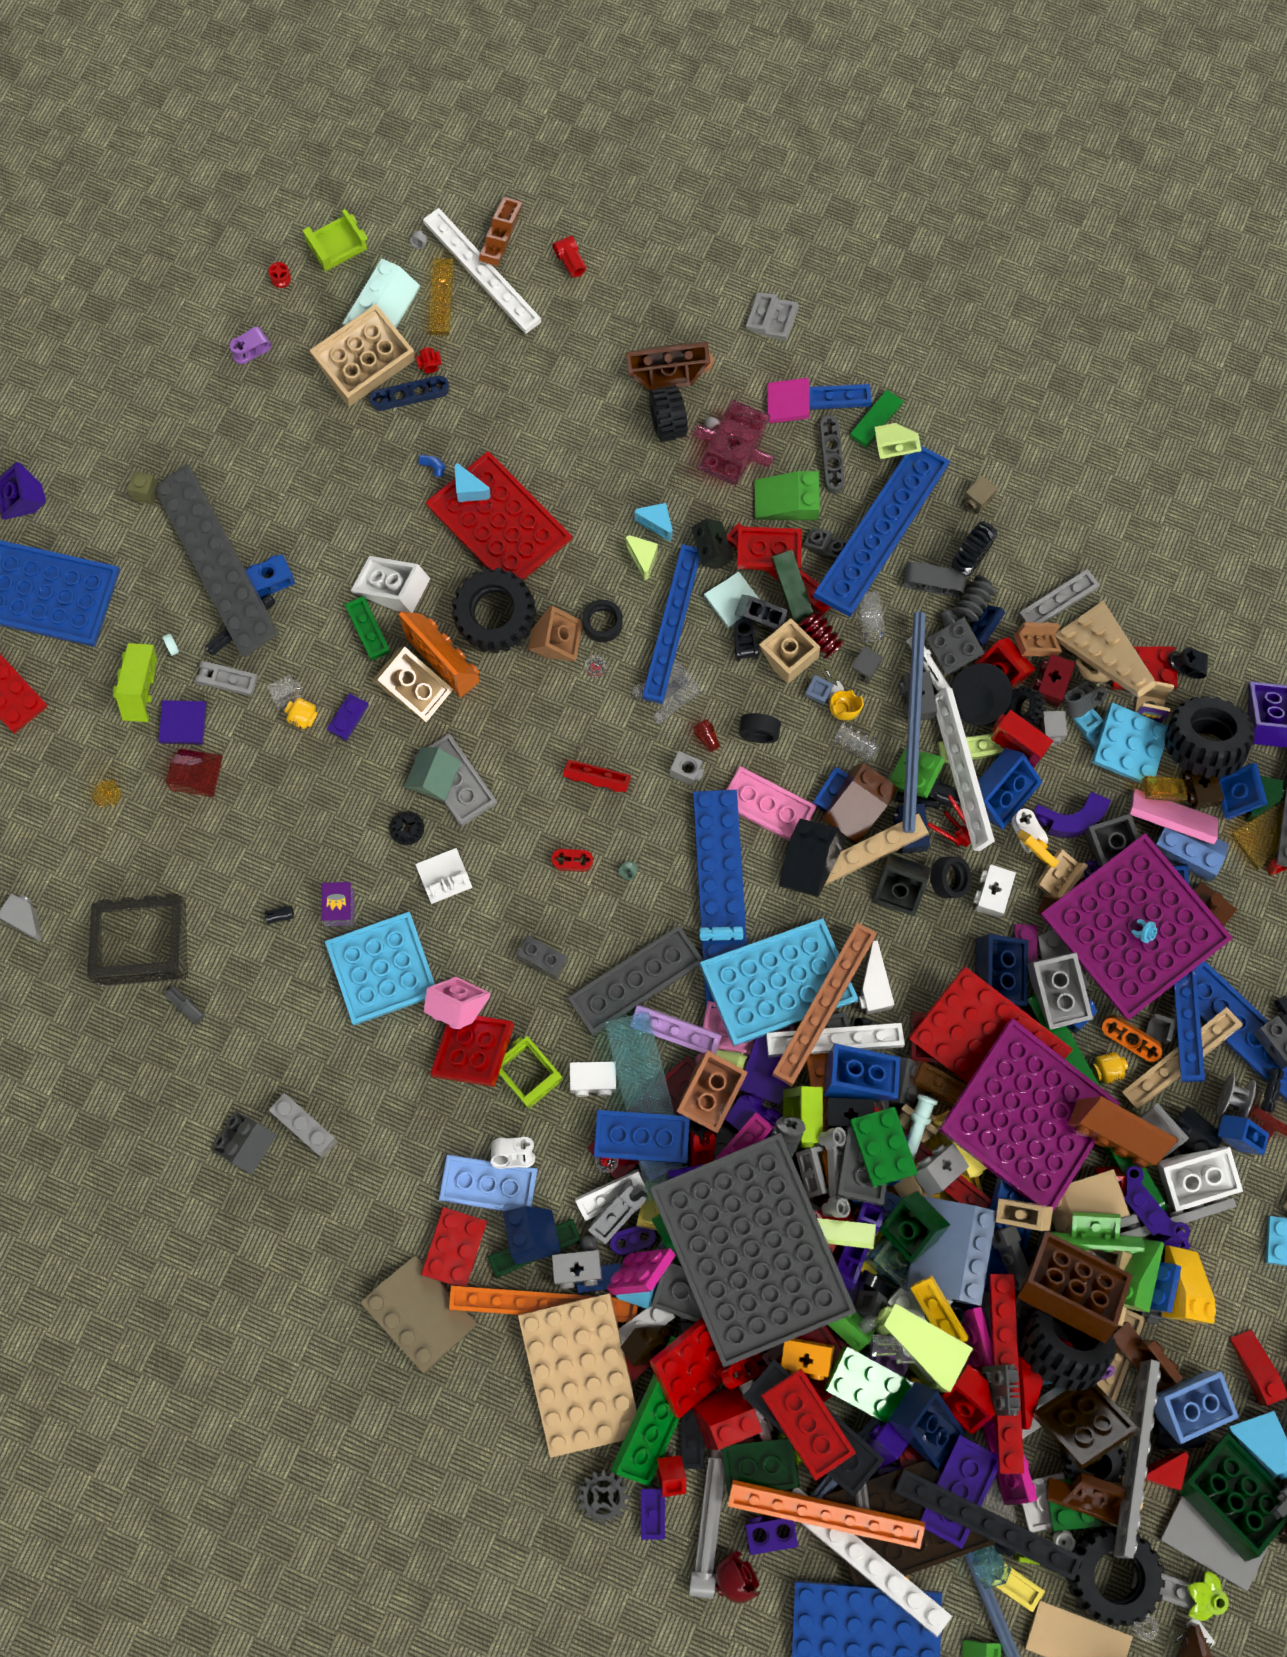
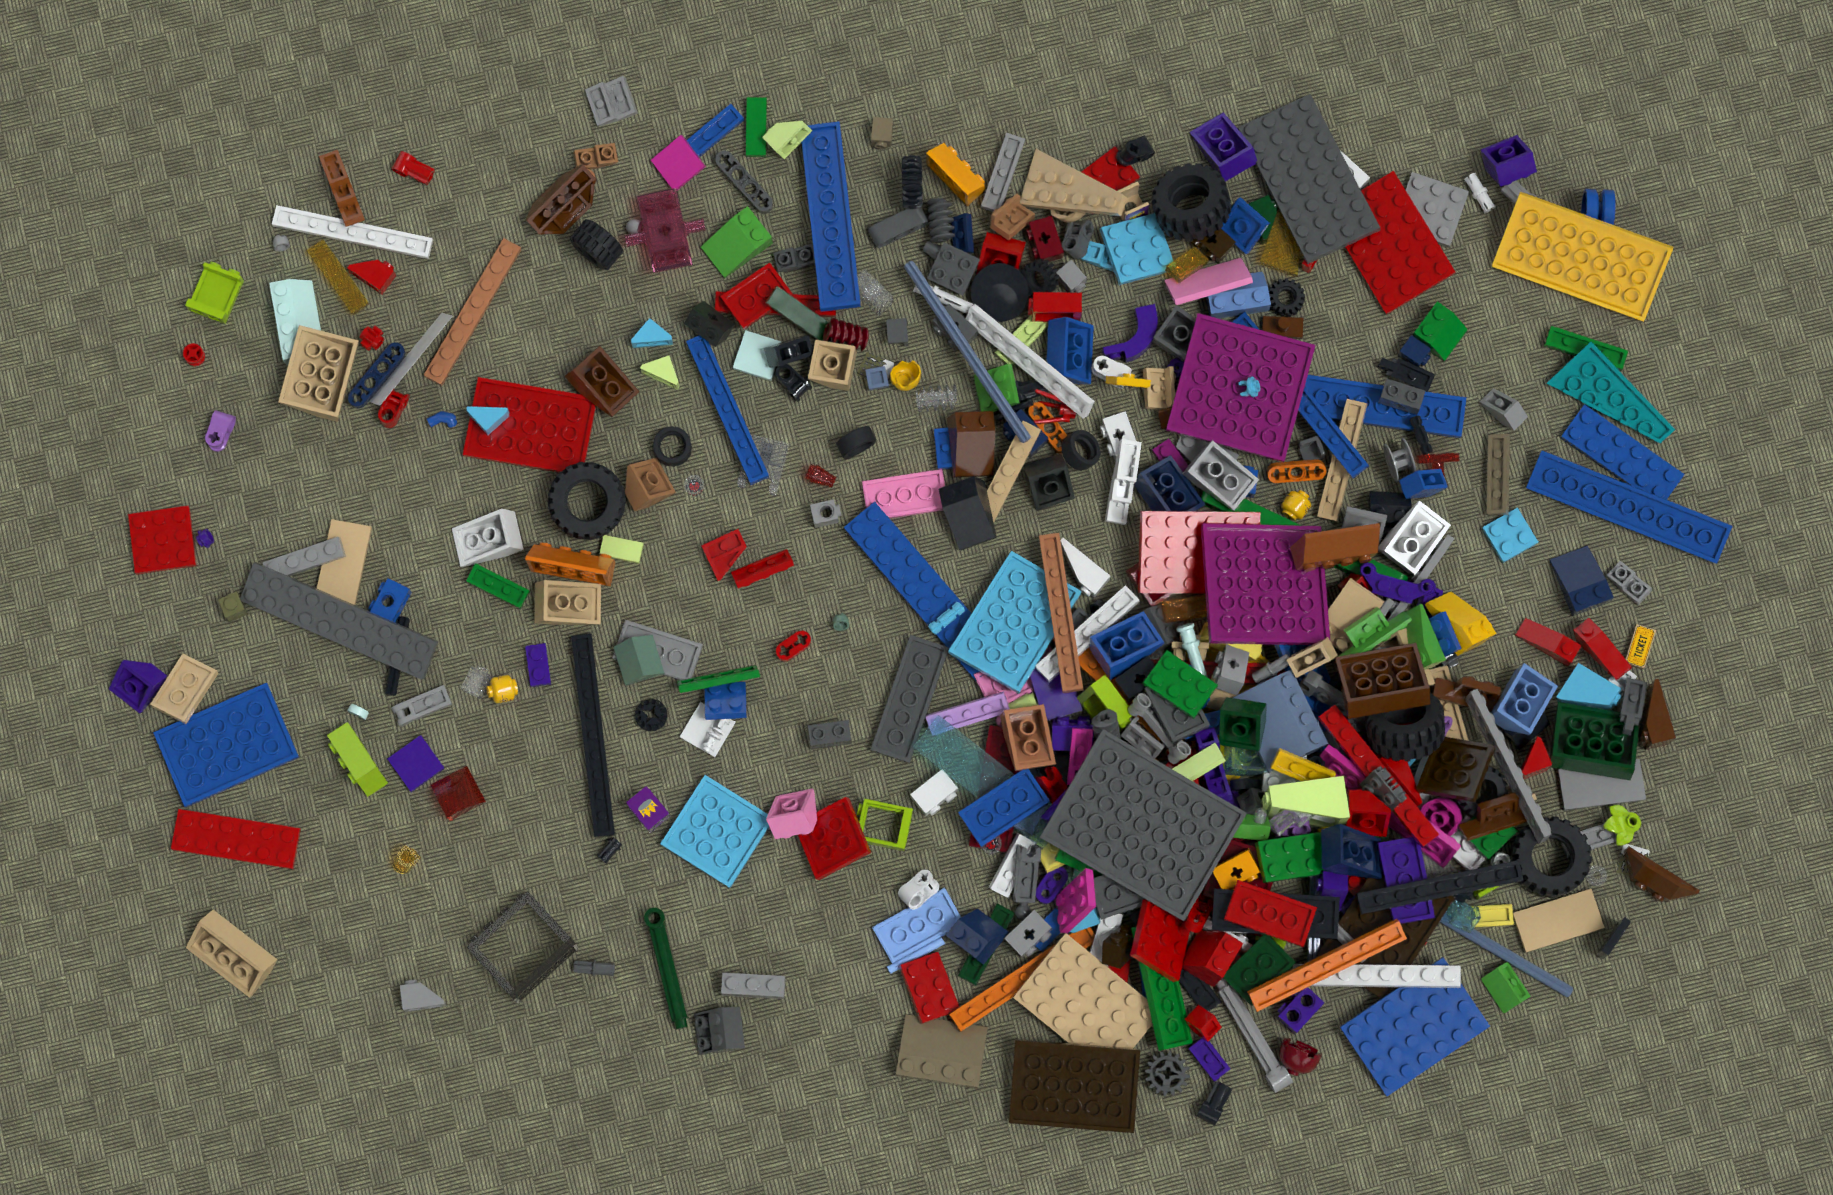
camera: 35 degrees left, 5 degrees up
(49, 523) = (184, 688): none -> tan plate
(135, 398) = (162, 540): none -> red plate
(168, 420) = (205, 538): none -> dark purple plate
(235, 493) = (308, 557): none -> light grey plate
(244, 1052) = (667, 969): none -> dark green piece
(262, 518) = (344, 575): none -> tan tile
(343, 809) = (593, 735): none -> black plate
(402, 425) = (393, 404): none -> red piece
(445, 397) = (410, 359): none -> white sticker
(466, 1209) = (916, 954): none -> light blue bar
(472, 313) = (374, 274): none -> red slope
(476, 862) = (726, 701): none -> blue plate
(485, 839) = (718, 679): none -> green tile
(494, 674) = (622, 549): none -> yellowish green tile
(510, 1441) = (1074, 1086): none -> dark brown plate
(526, 399) = (472, 312): none -> nougat plate
(576, 738) = (724, 552): none -> red wing
(585, 525) = (602, 382): none -> reddish brown slope
(621, 1562) = (1212, 1107): none -> black piece
(726, 351) = (596, 157): none -> medium nougat slope
(943, 825) = (1044, 413): none -> orange beam
(968, 931) = (1123, 481): none -> white slope
(977, 1197) = (1270, 669): none -> light grey axle
(1017, 570) = (955, 173): none -> light orange slope
(1042, 1455) = (1444, 814): none -> dark pink cylinder
(1244, 873) = (1292, 287): none -> black tyre

